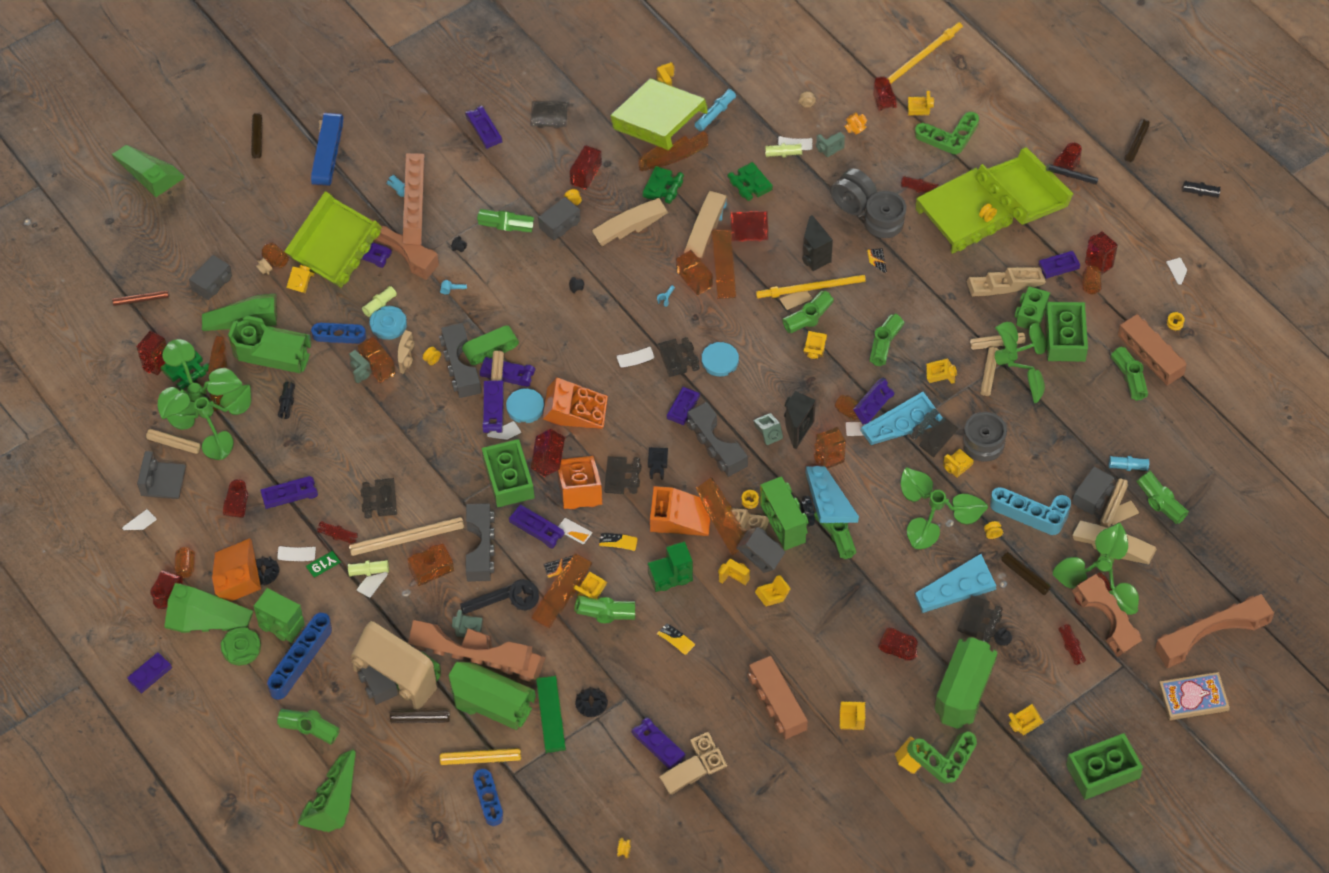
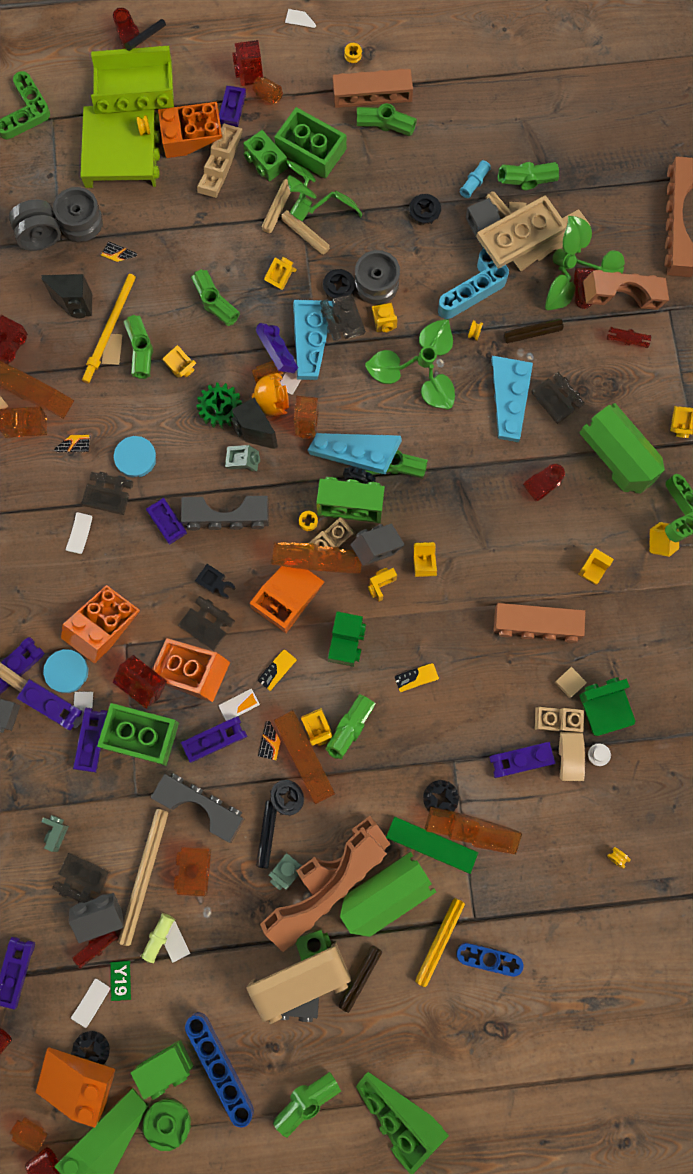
camera: 60 degrees left, 20 degrees up
(359, 519) = (96, 917): none -> dark grey brick
(402, 464) = (55, 836): none -> sand green bracket
(472, 451) = (87, 751): none -> dark purple plate
(579, 733) = (473, 830): none -> clear orange slope
(662, 296) = (29, 464): medium azure hand -> none
(698, 795) = (599, 754): none -> white plate
(703, 316) = (74, 443): none -> sticker
(742, 780) = (607, 706): none -> green bracket
(744, 747) = (570, 682): none -> tan tile
(801, 384) = (210, 402): none -> green gear
(832, 415) = (271, 395): none -> light orange cylinder
(918, 185) = (63, 167): clear red pin -> none
(965, 410) = (334, 277): none -> black gear
(1003, 637) = (586, 389): black piece -> none
(1013, 244) = (189, 128): none -> orange slope
(1082, 440) = (423, 201): none -> black gear
(1096, 509) = (521, 231): none -> tan plate

